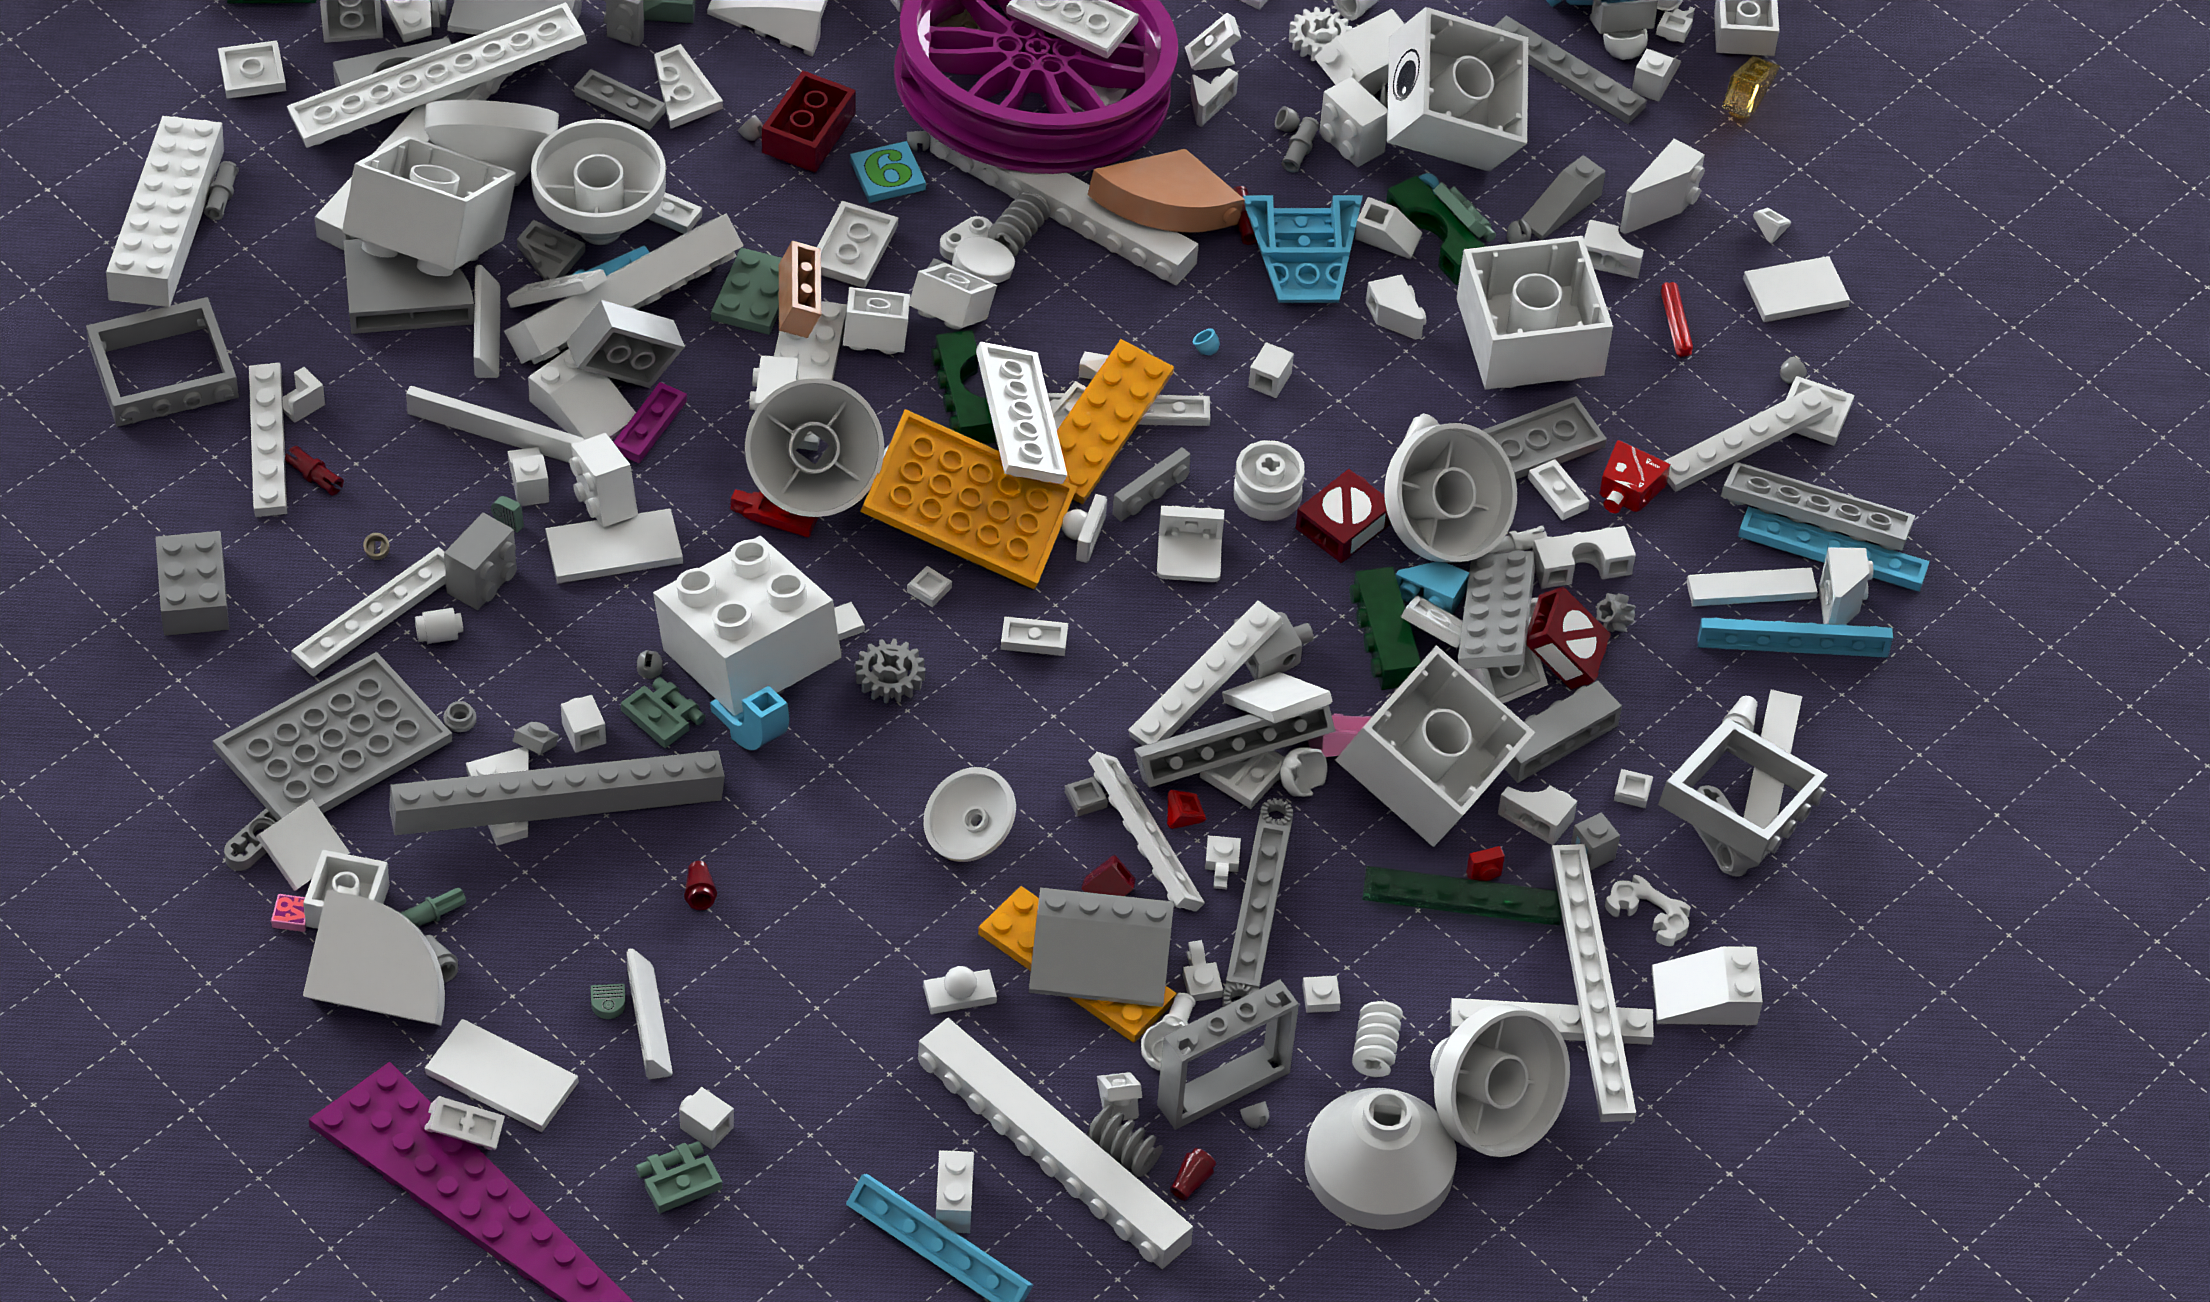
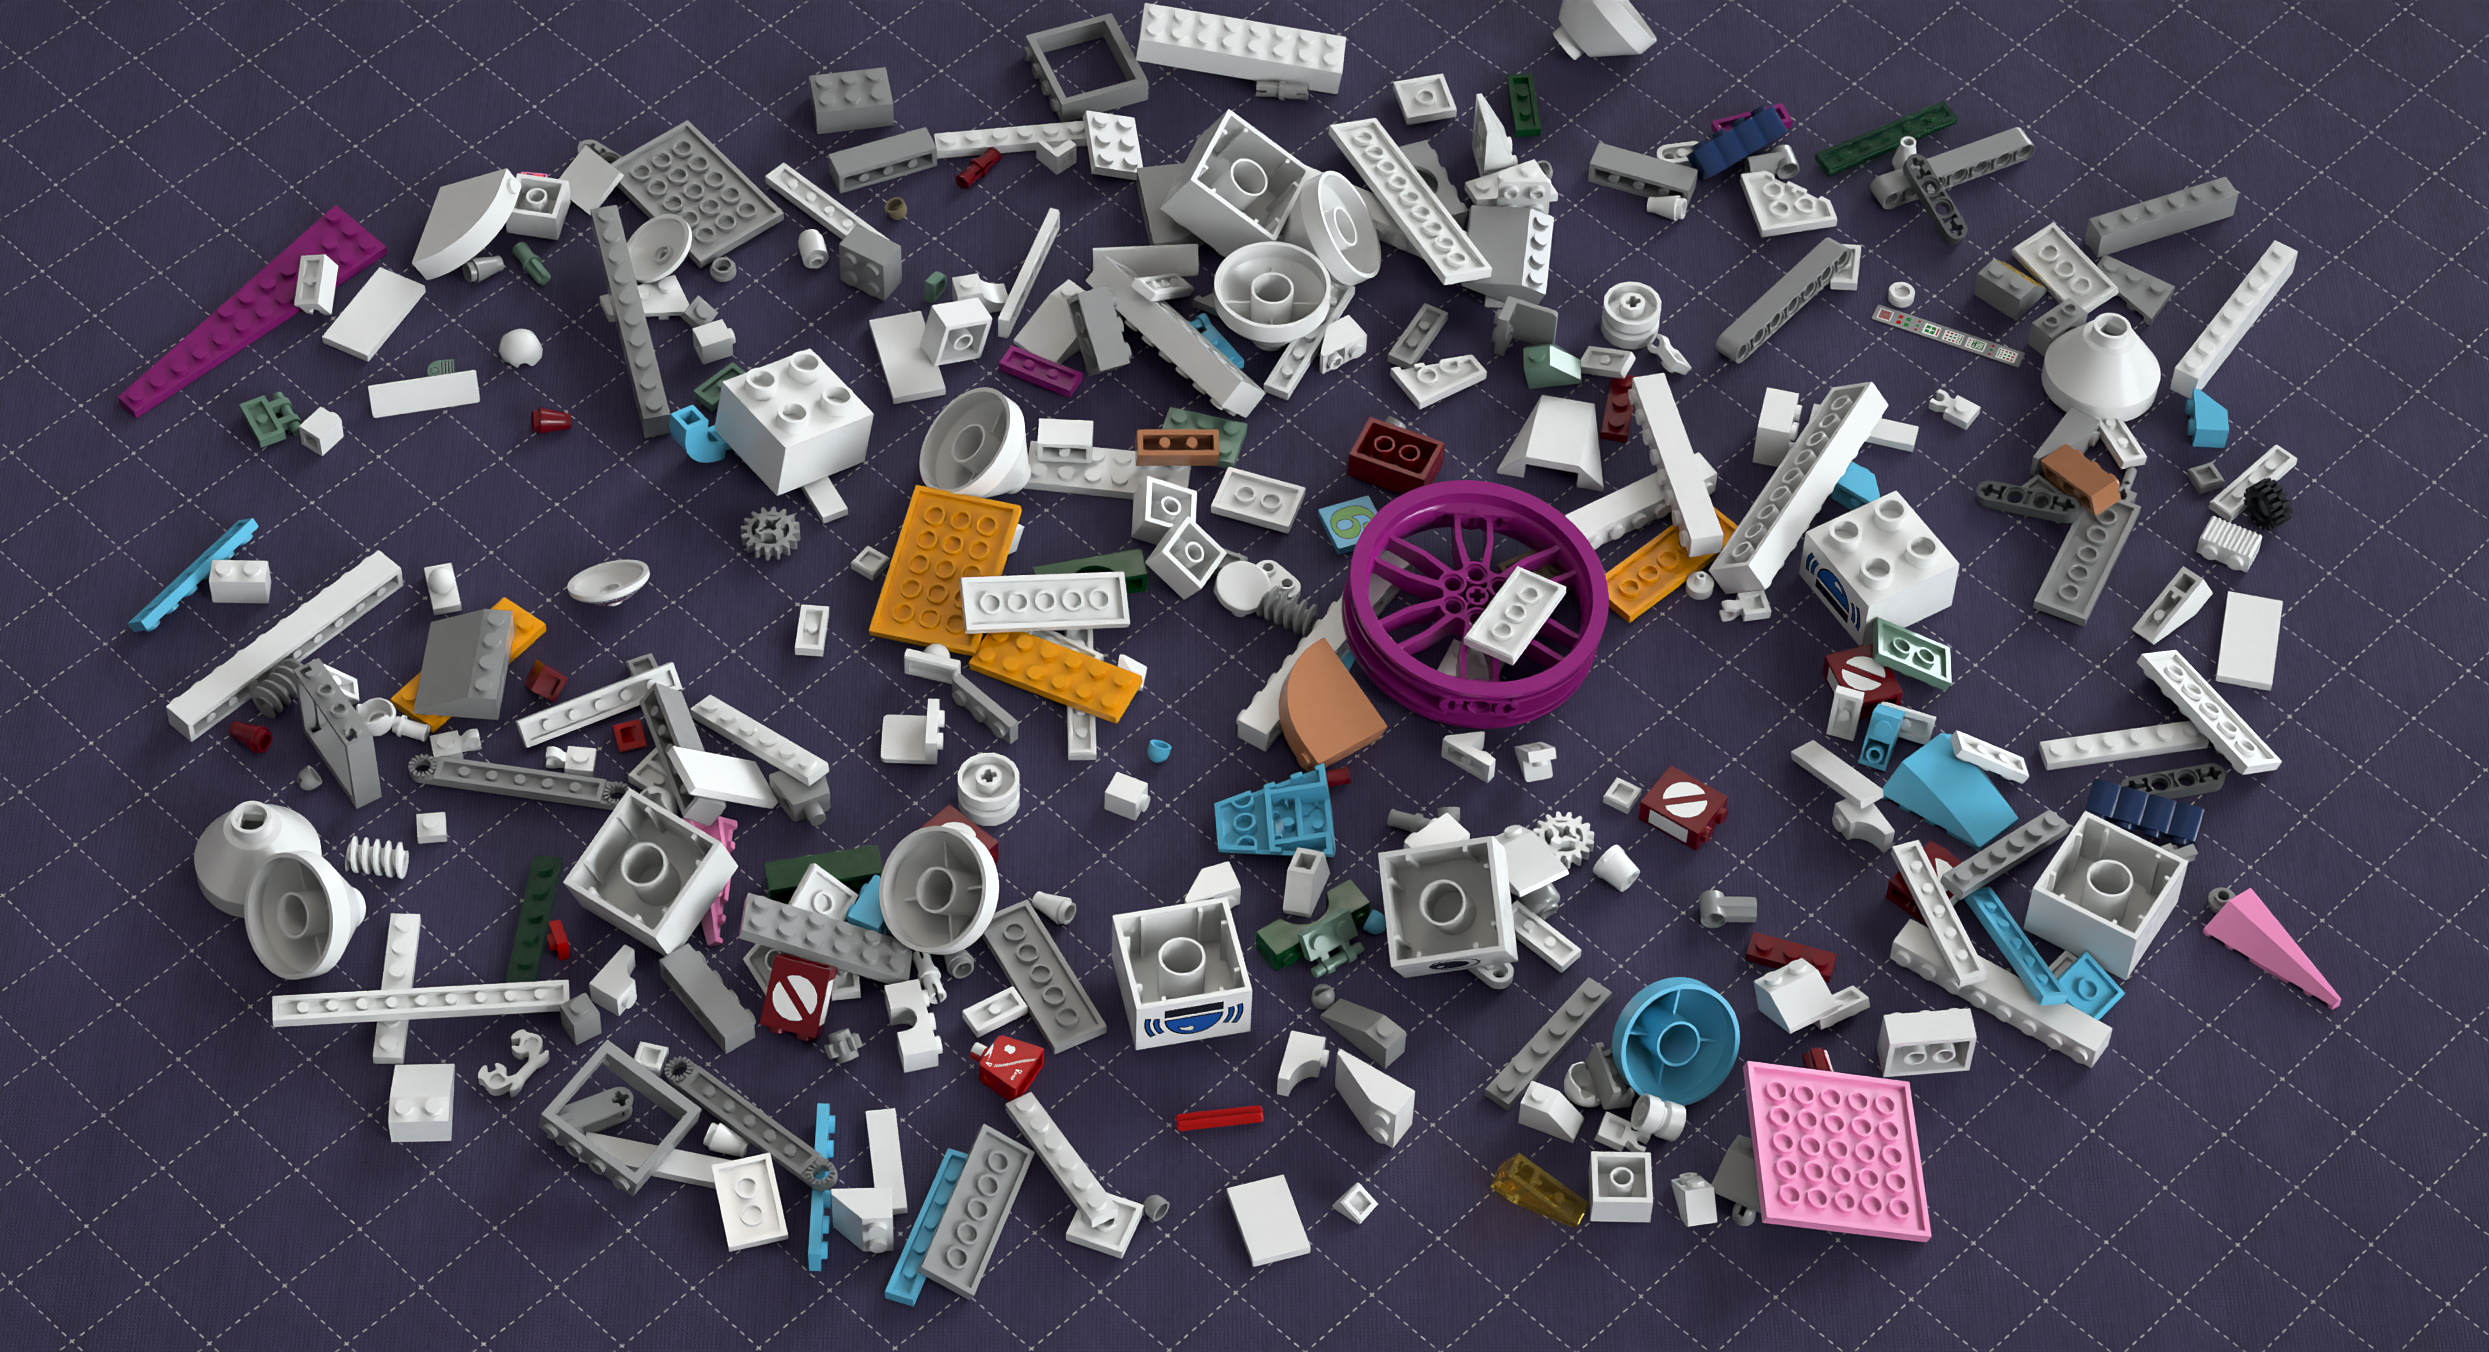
camera: 90 degrees right, 0 degrees up
(295, 557) = (882, 160): none -> light grey brick
(296, 341) = (1112, 145): none -> white plate
(433, 745) = (659, 247): none -> white dish
(574, 919) = (520, 347): none -> white hair
(1725, 689) = (751, 1123): none -> light grey plate
(1824, 692) = (749, 1202): none -> white plate

